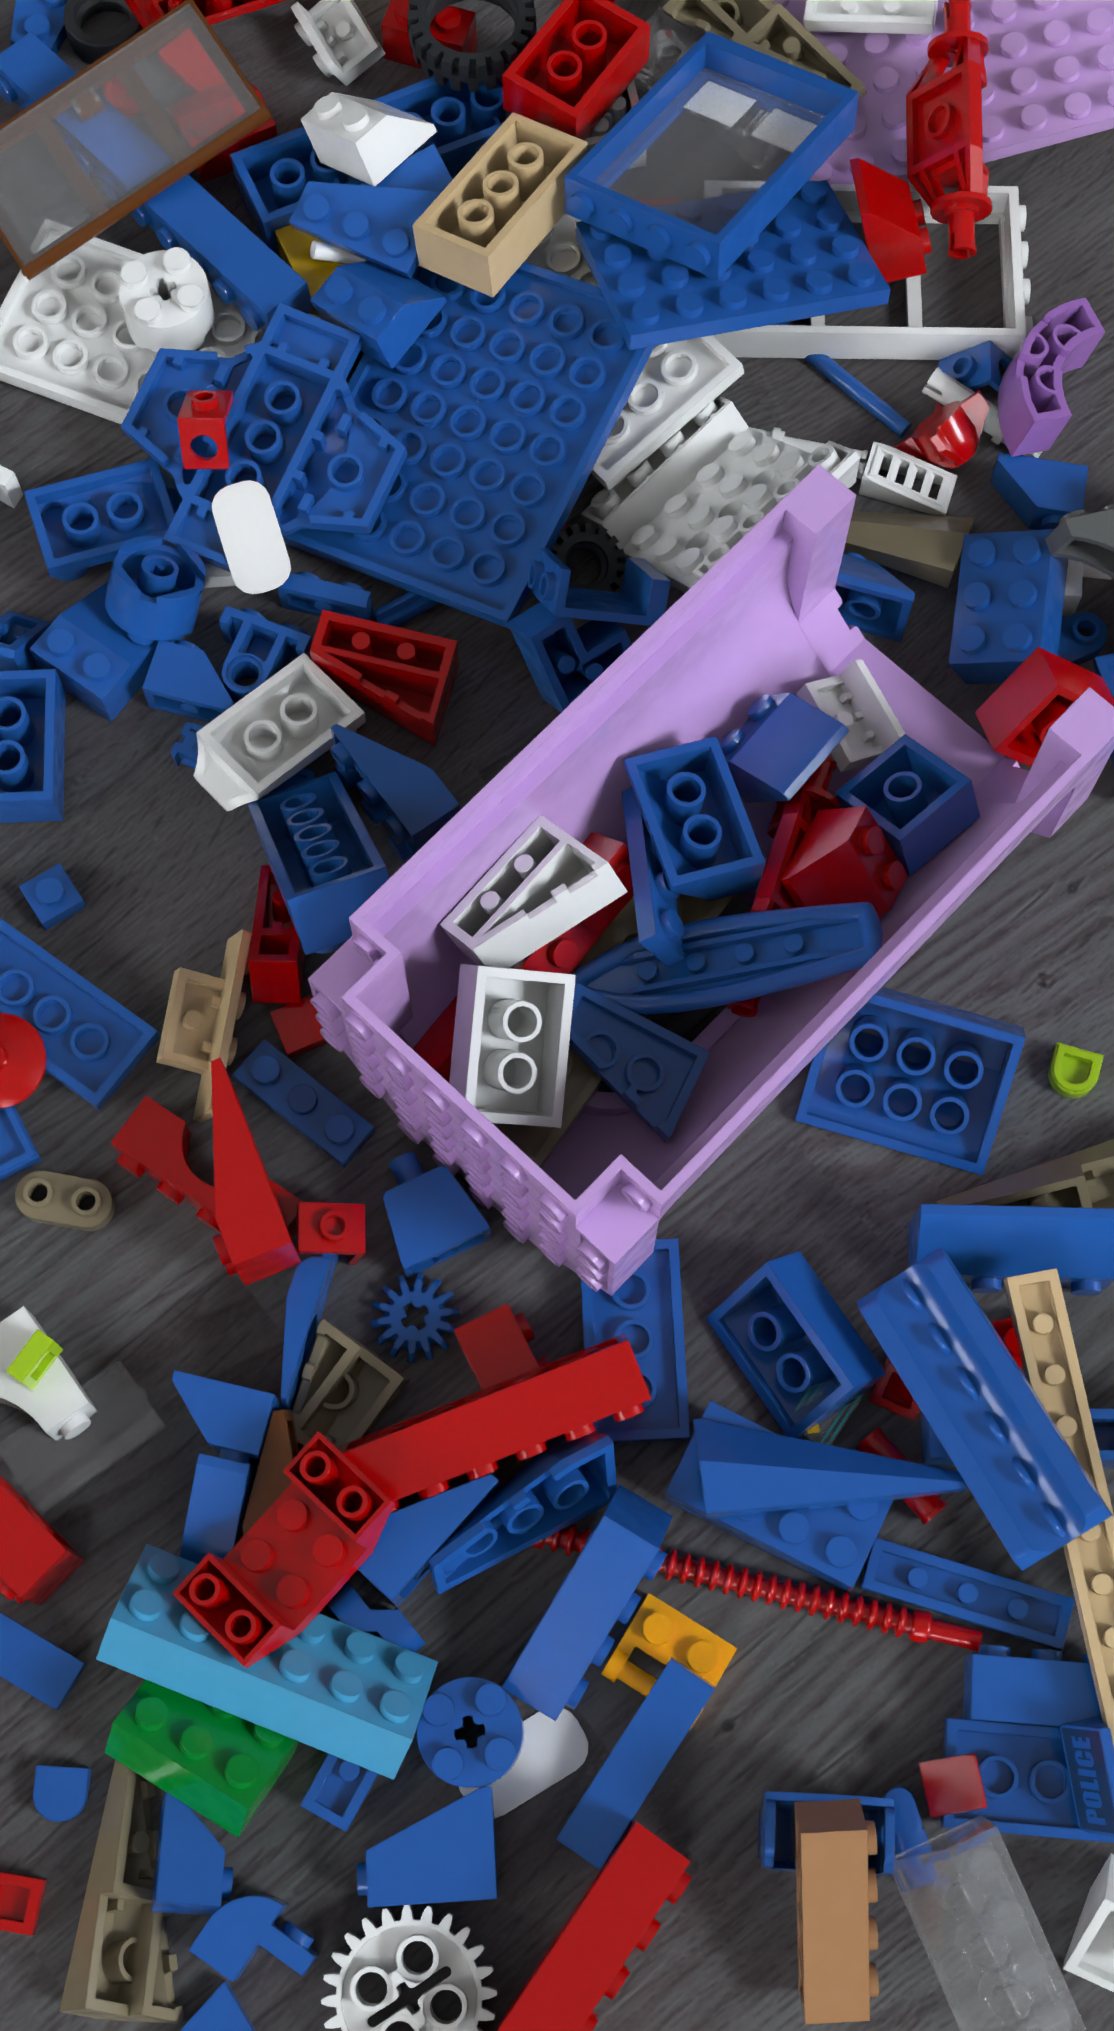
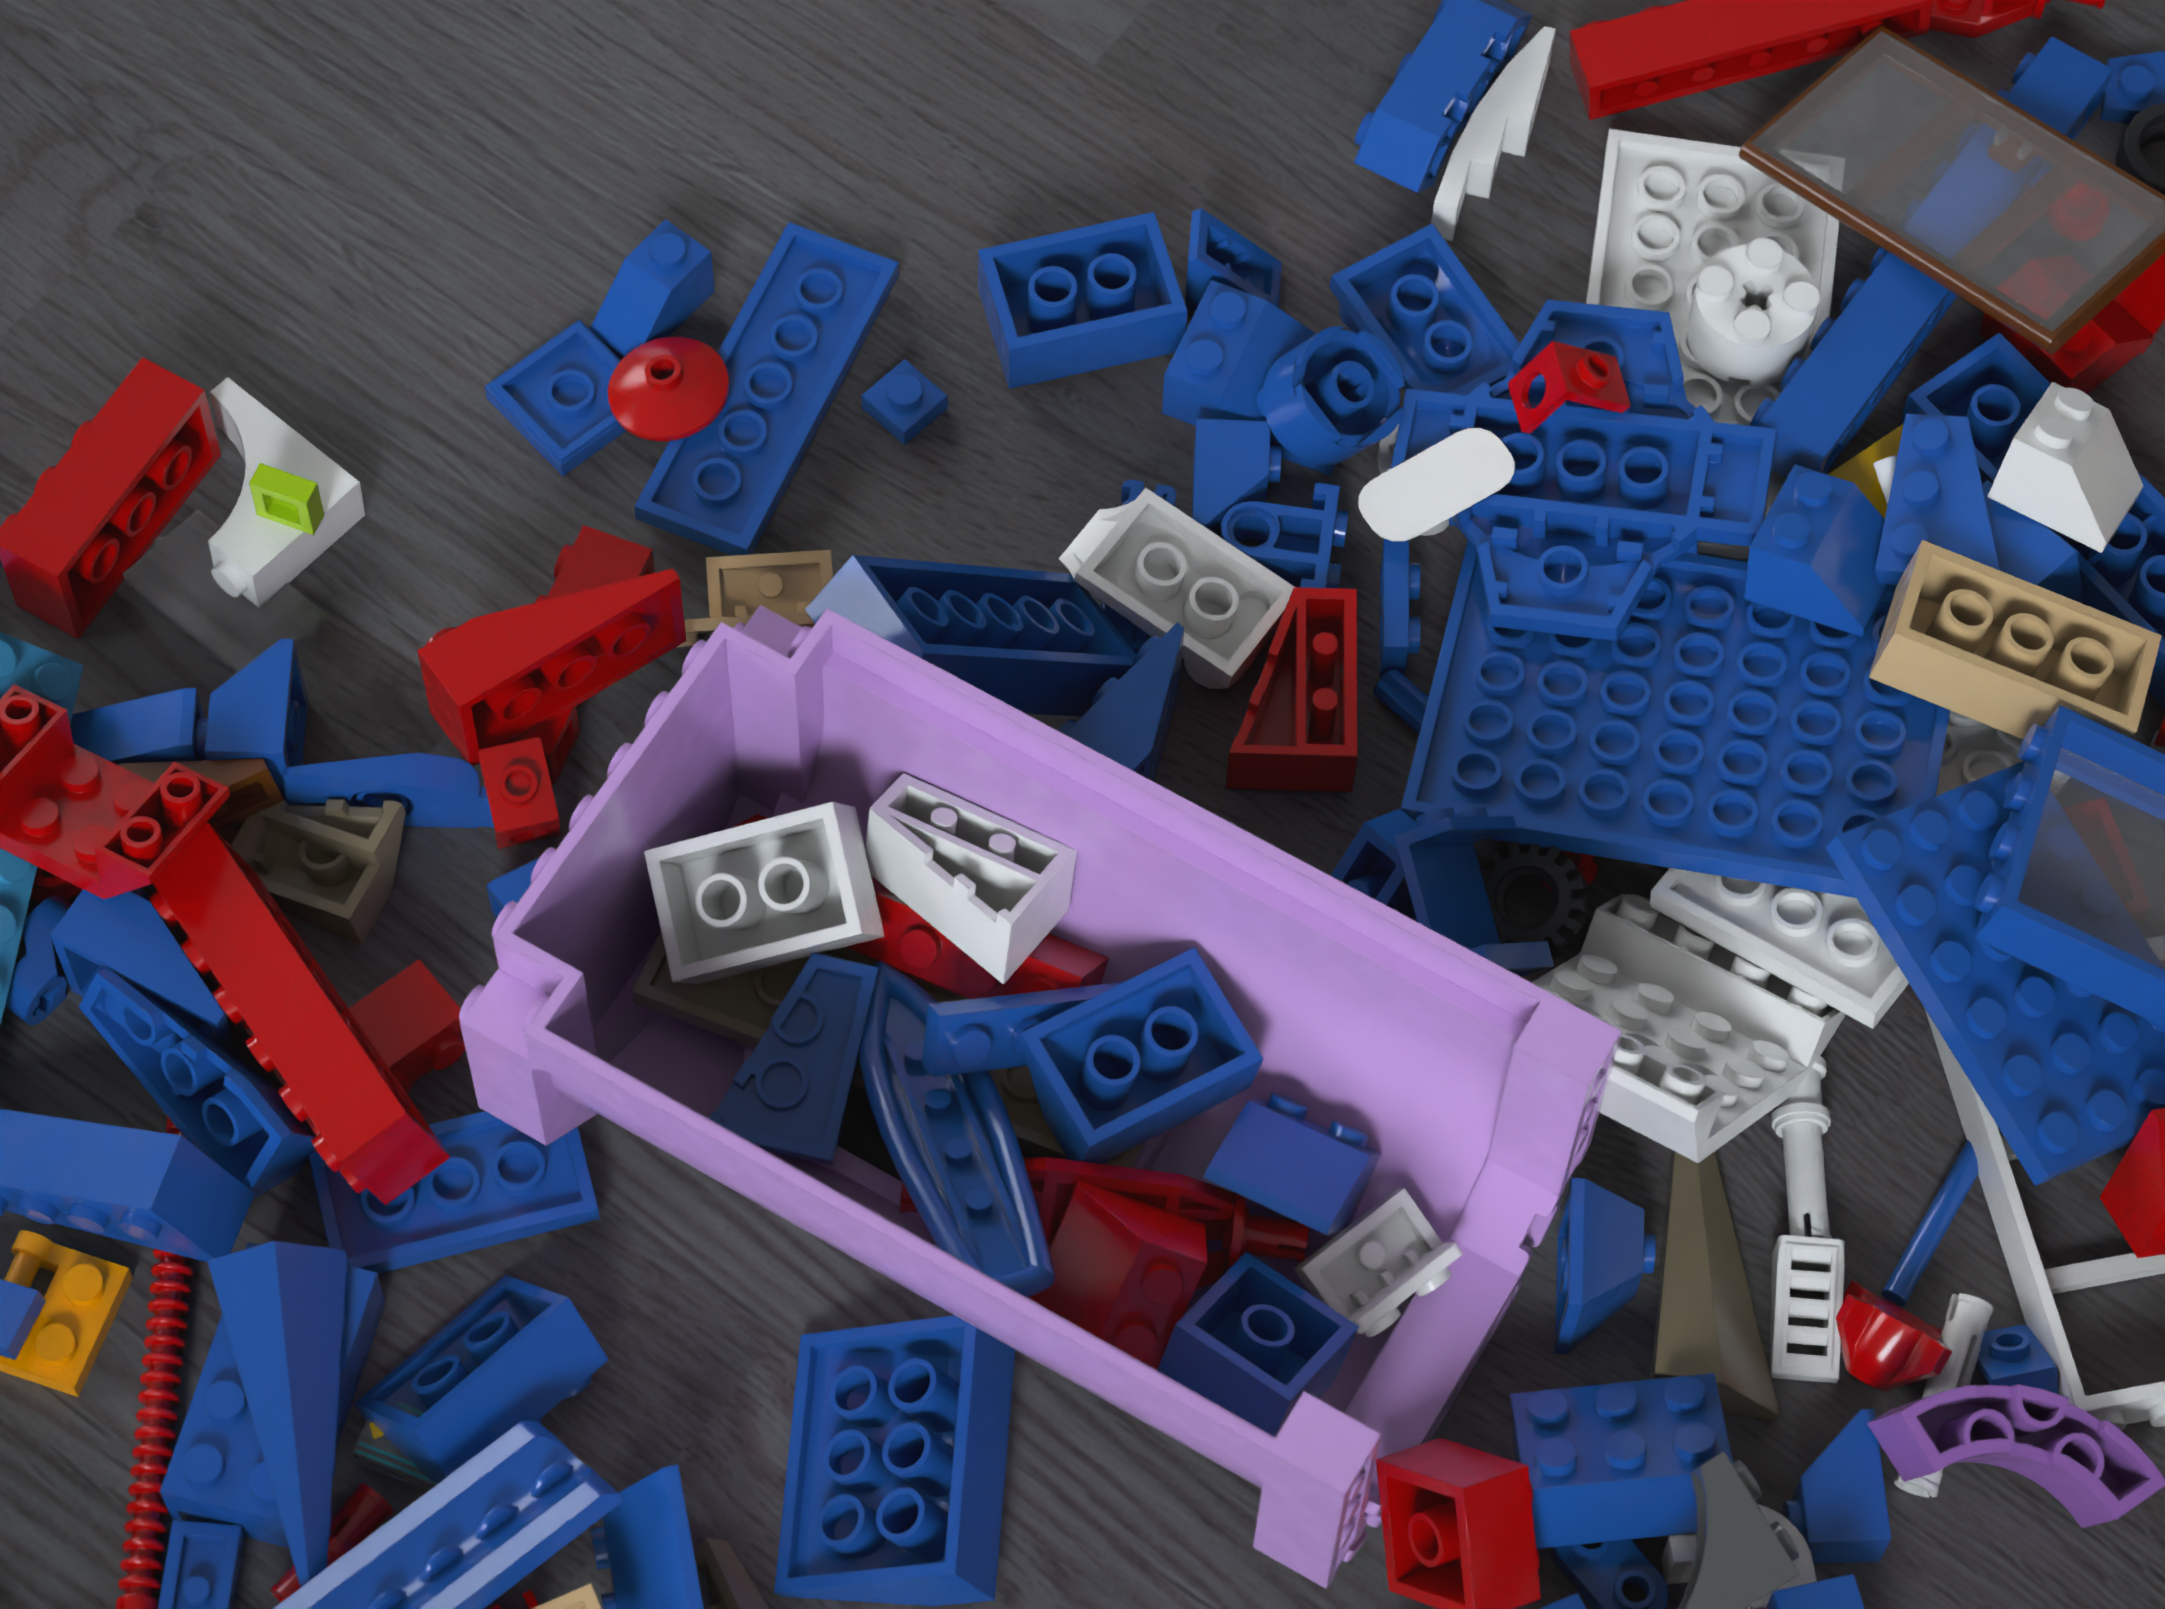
camera: 75 degrees right, 10 degrees down
(63, 1201) = (513, 504): dark tan plate -> none
(410, 1337) = (438, 951): blue gear -> none

